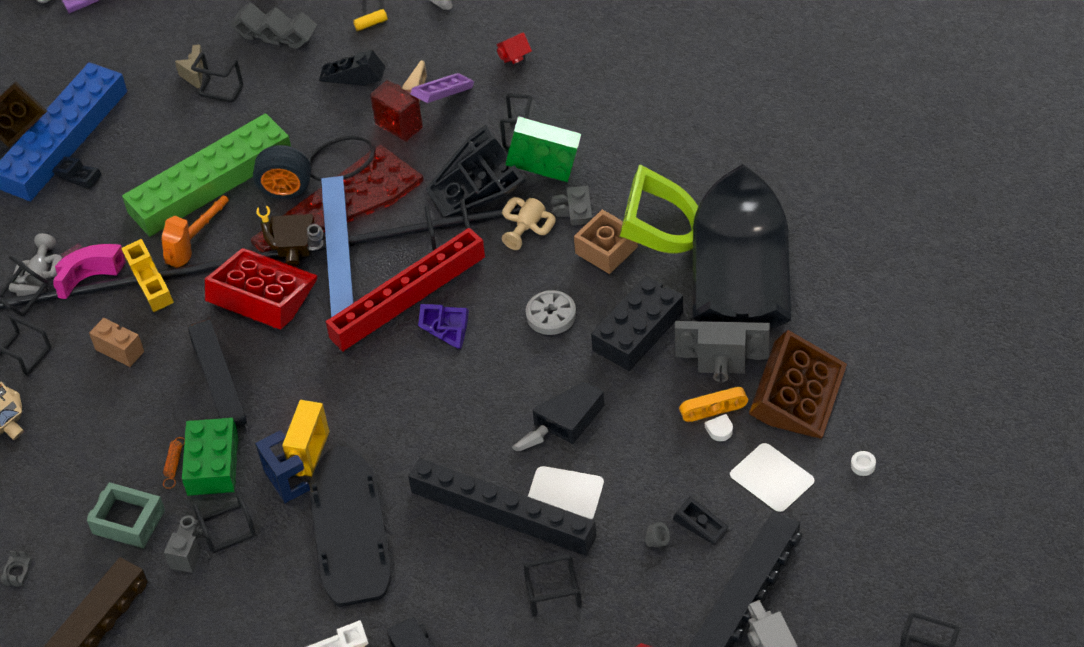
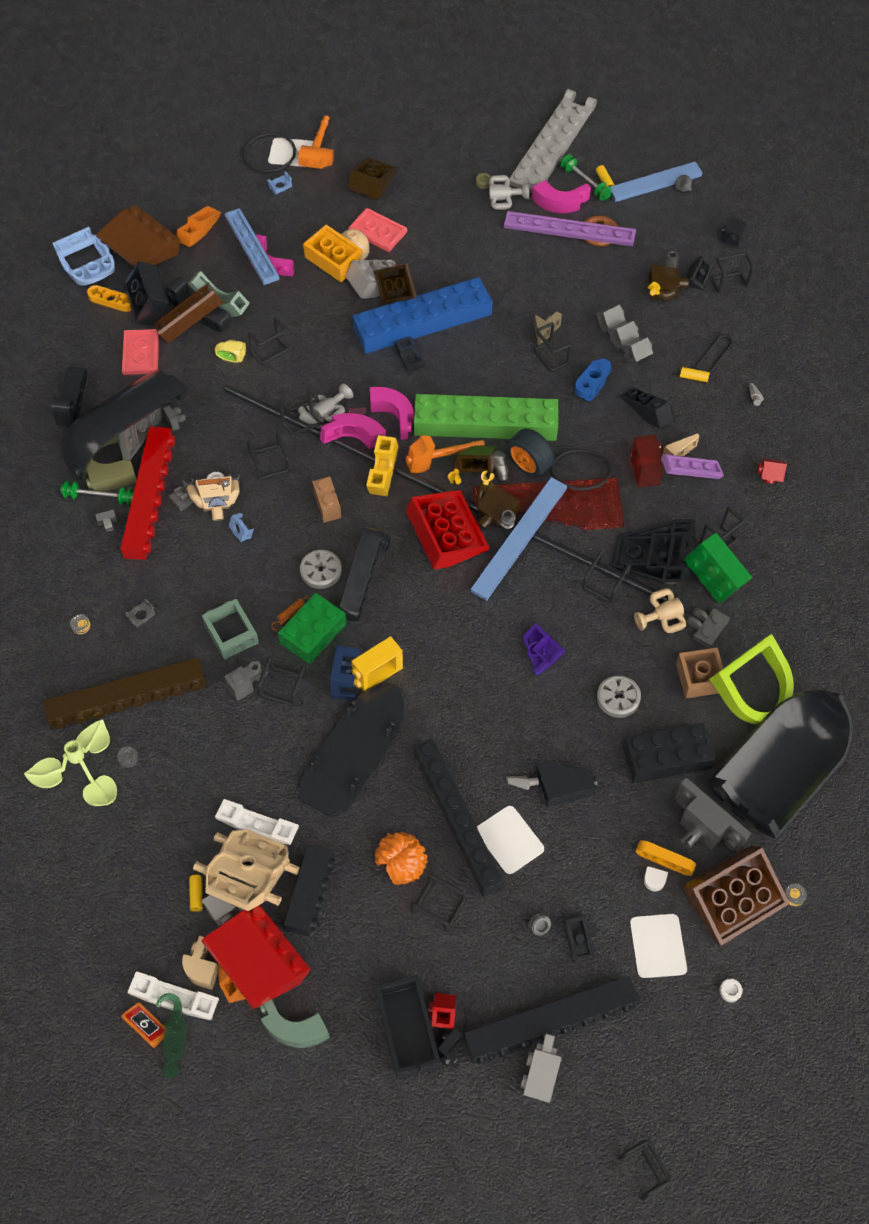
camera: 35 degrees right, 10 degrees up
(57, 424) = (244, 532): none -> medium blue piece
(106, 220) = (394, 402): none -> dark pink arch
(166, 416) = (320, 579): none -> light grey wheel
(238, 210) = (478, 460): none -> dark brown torso
(280, 80) = (593, 379): none -> blue piece
(405, 289) = (537, 603): red brick -> none
(485, 569) = (403, 857): none -> orange hair
(845, 352) = (795, 894): none -> clear tile

